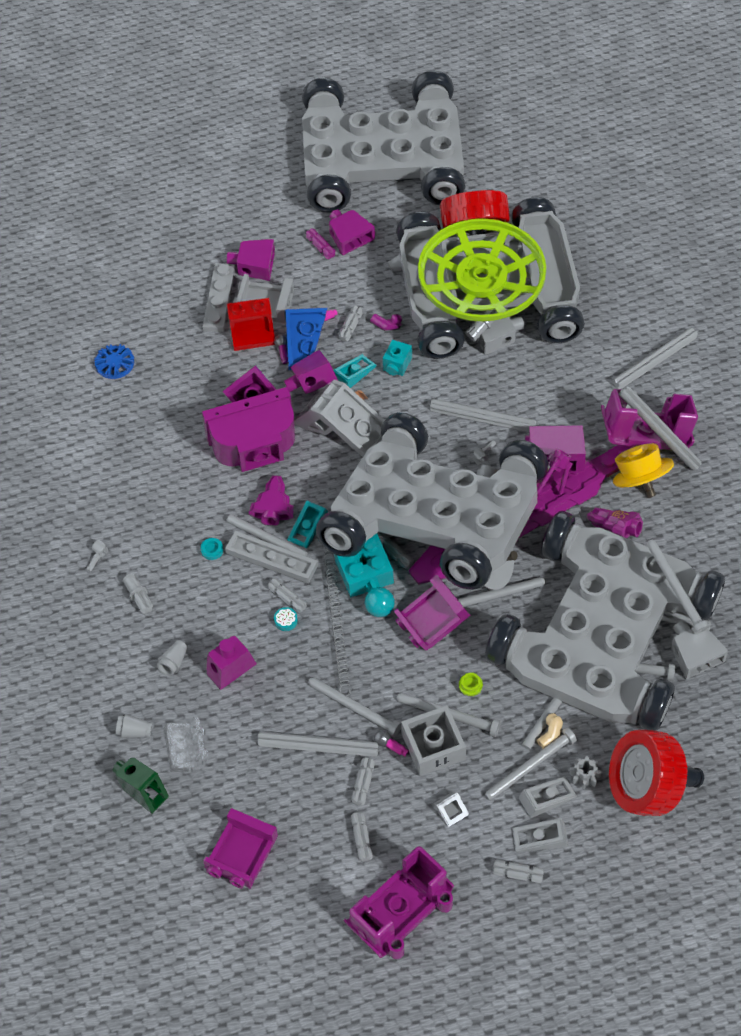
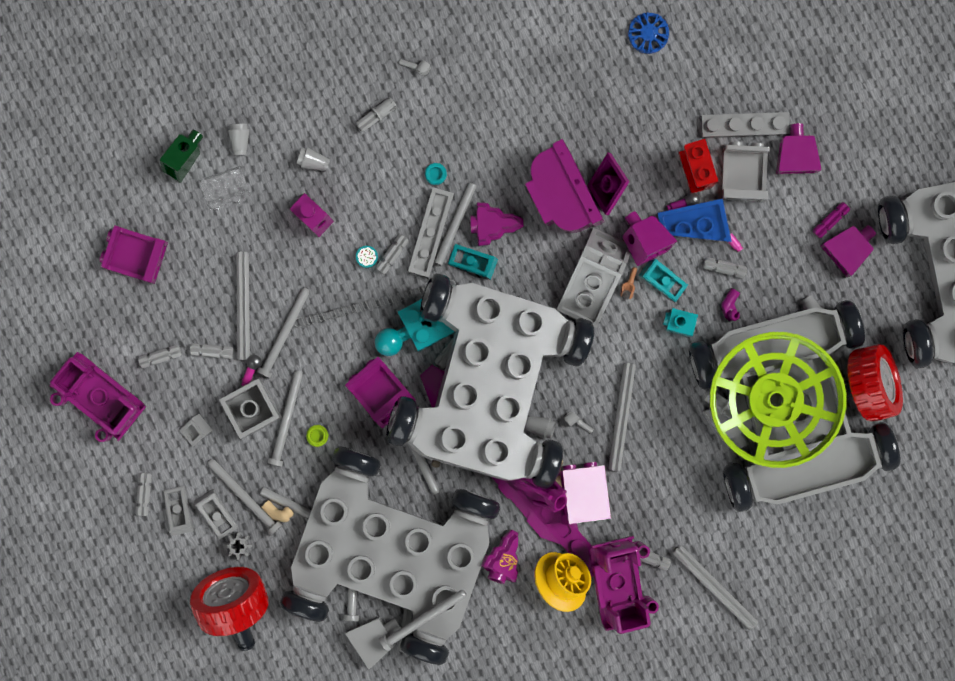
camera: 80 degrees right, 30 degrees up
(660, 428) = (607, 595): light grey axle -> none

